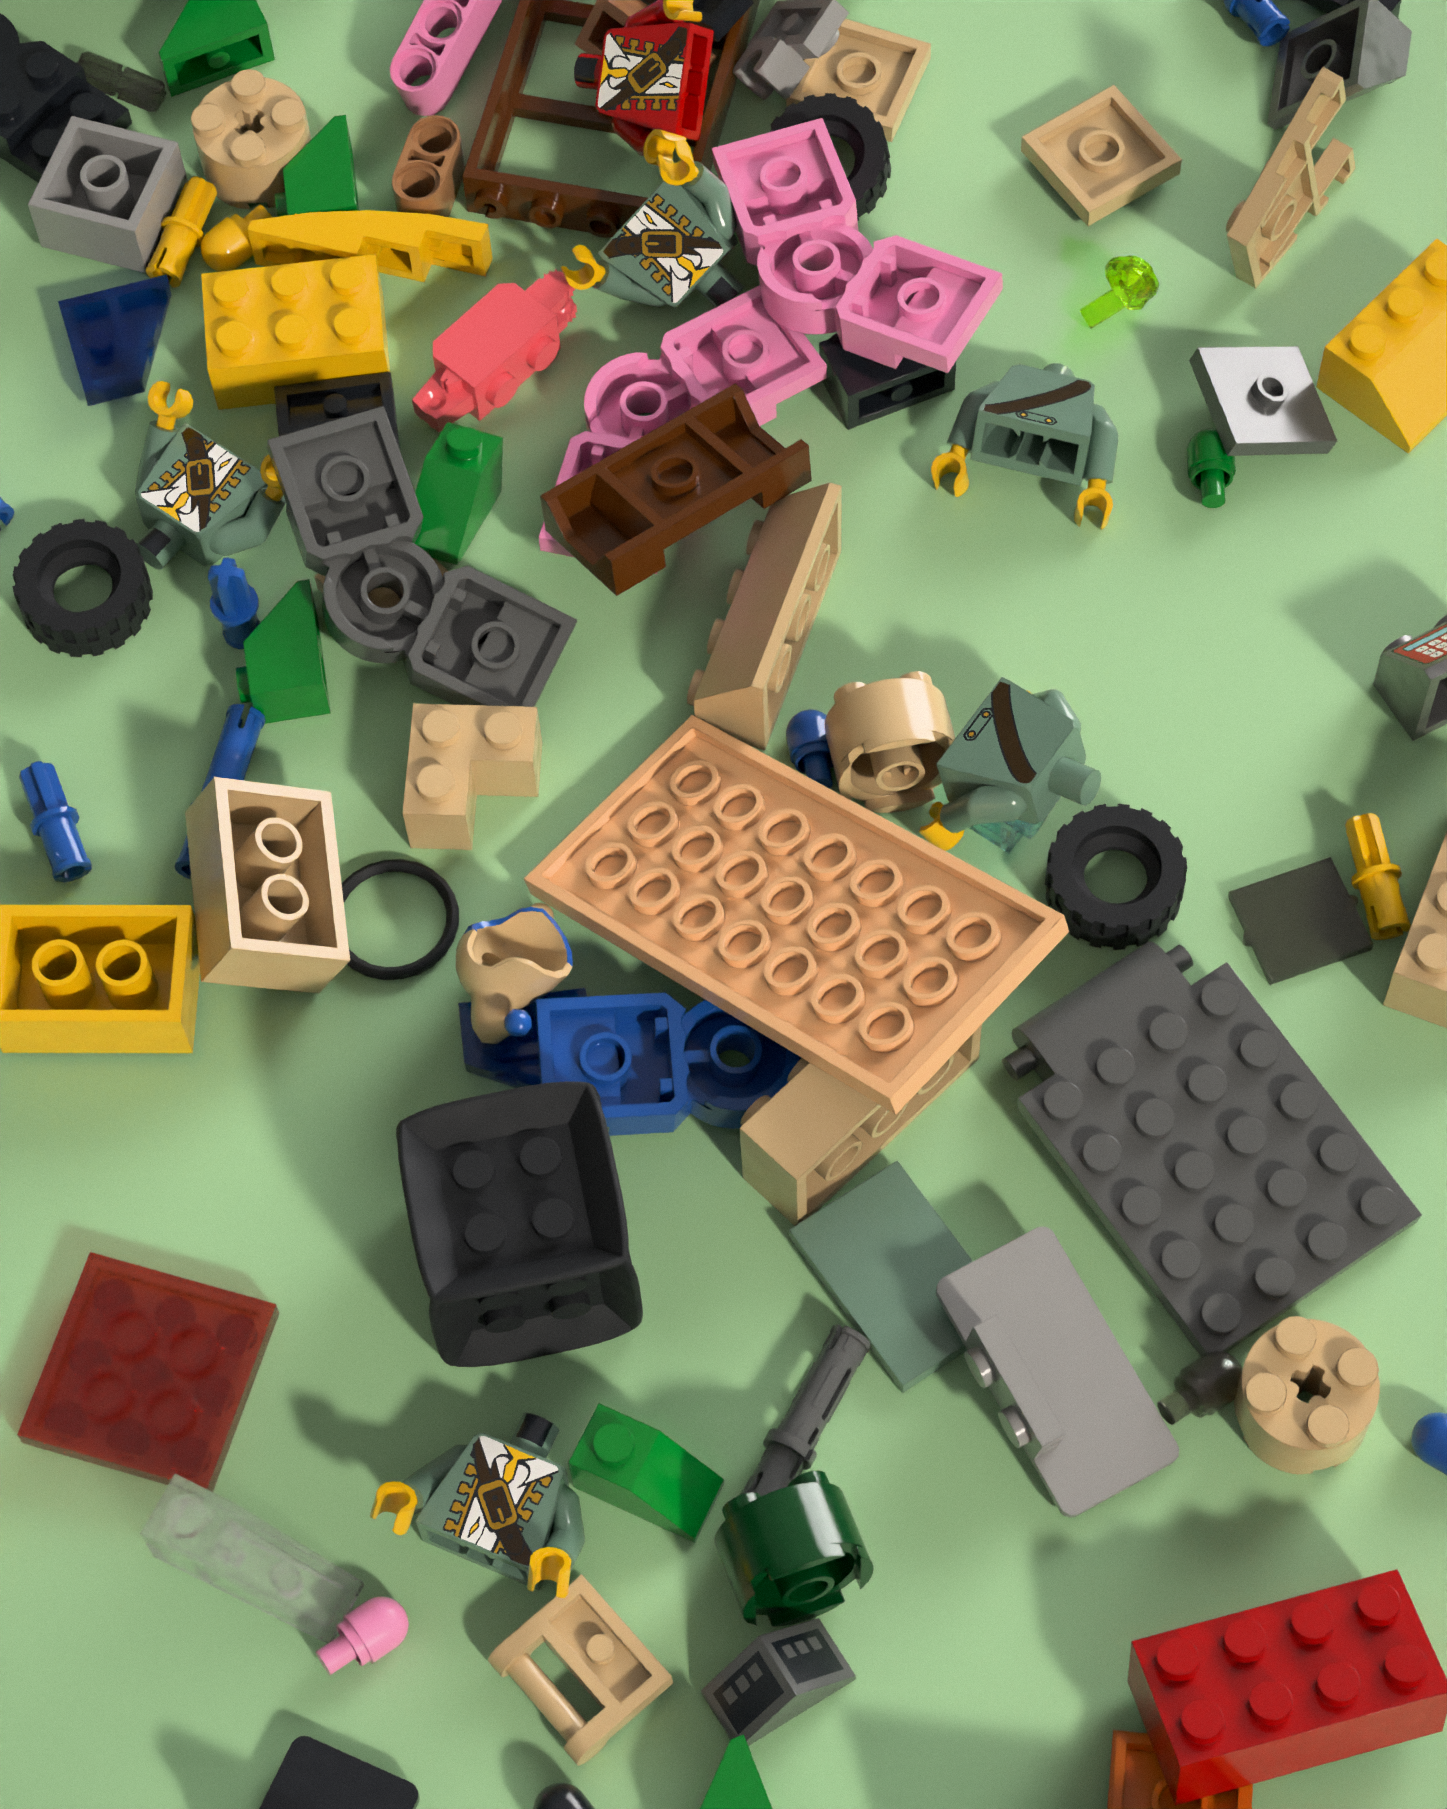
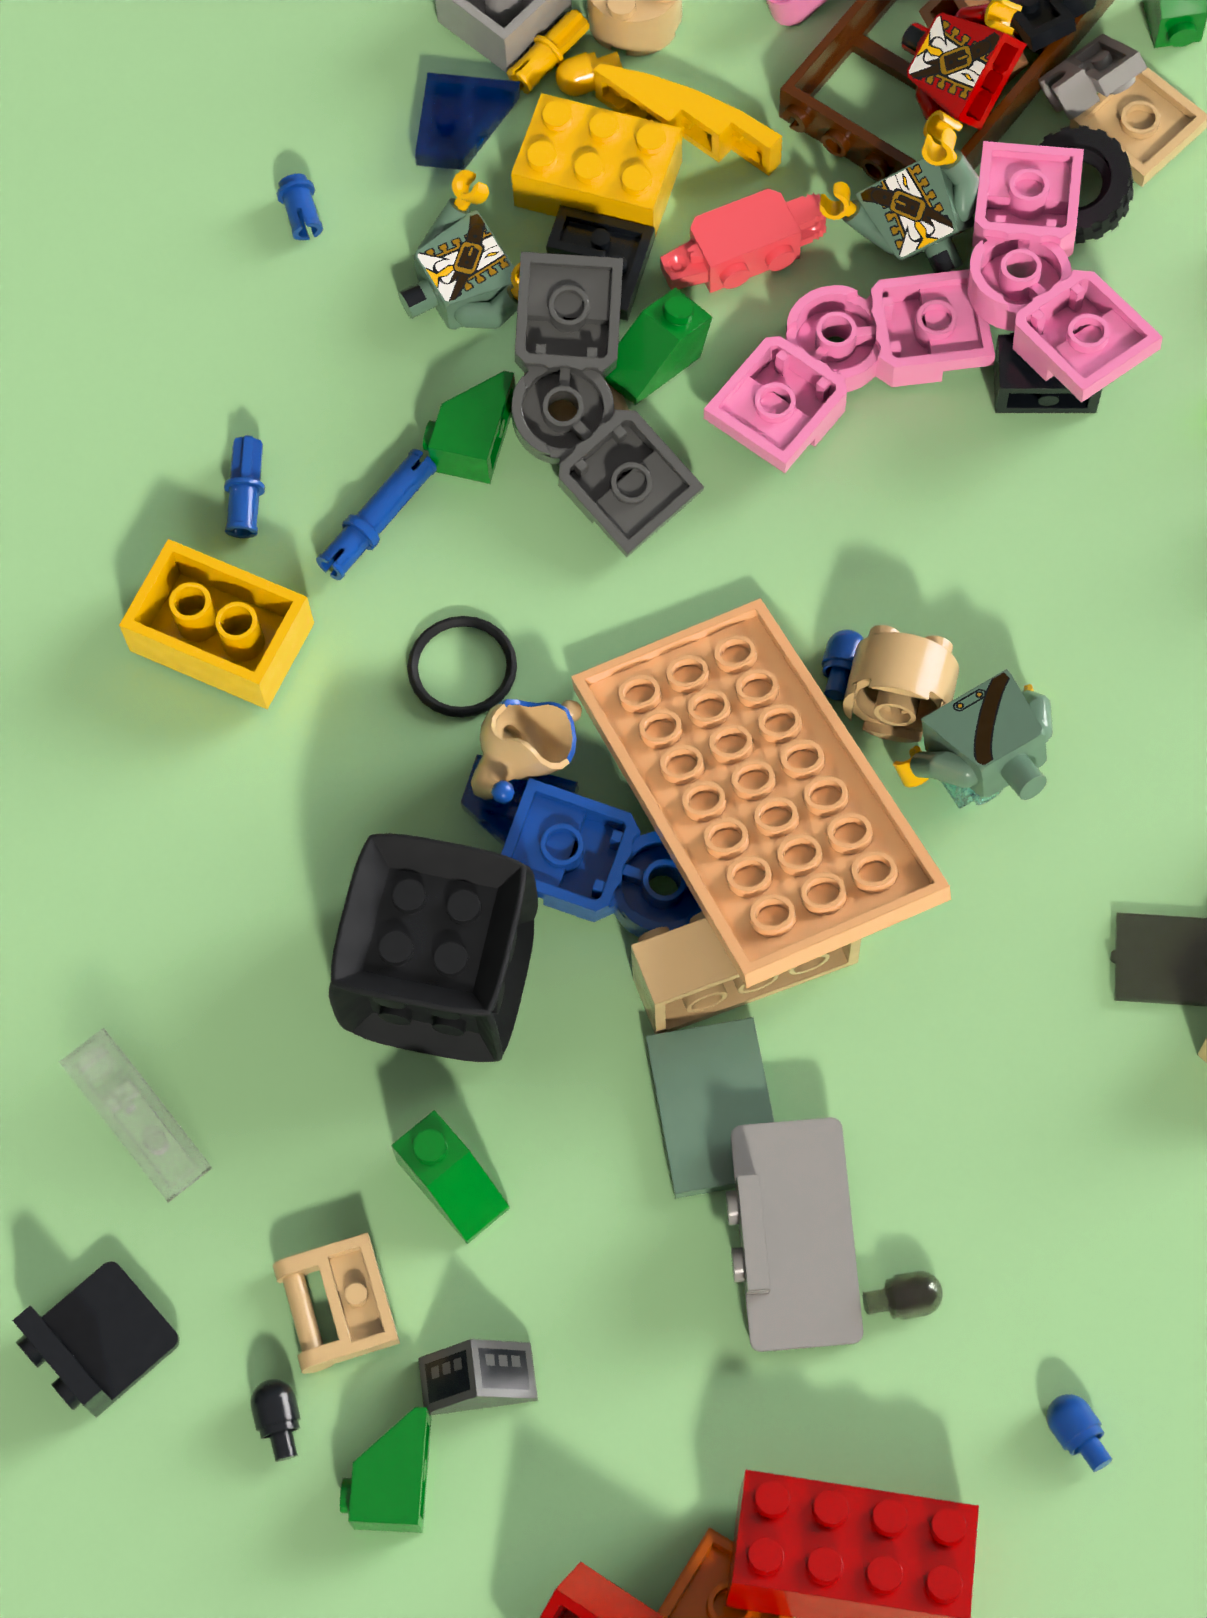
camera: 25 degrees right, 5 degrees up
(72, 547) = (340, 275): black tyre -> none
(149, 1373) = (126, 942): clear red plate -> none
(233, 602) = (448, 367): blue axle -> none
(266, 886) = (372, 604): tan brick -> none
(321, 174) = (675, 46): green slope -> none
(366, 1634) = (194, 1206): bright pink cylinder -> none
(429, 168) = (758, 75): medium nougat beam -> none
(464, 755) = (566, 559): tan brick -> none
(496, 1505) = (329, 1152): torso -> none
(668, 486) = (821, 410): reddish brown piece -> none
(769, 615) = (856, 543): tan slope -> none
(792, 1550) = (528, 1284): dark green brick -> none
(793, 1442) = (580, 1195): dark grey pin -> none
(1036, 426) = (1142, 472): sand green torso -> none
(1127, 831) = (1035, 823): black tyre -> none
(1203, 1143) = (997, 1105): dark grey plate -> none
(1313, 1359) = (985, 1306): tan brick -> none

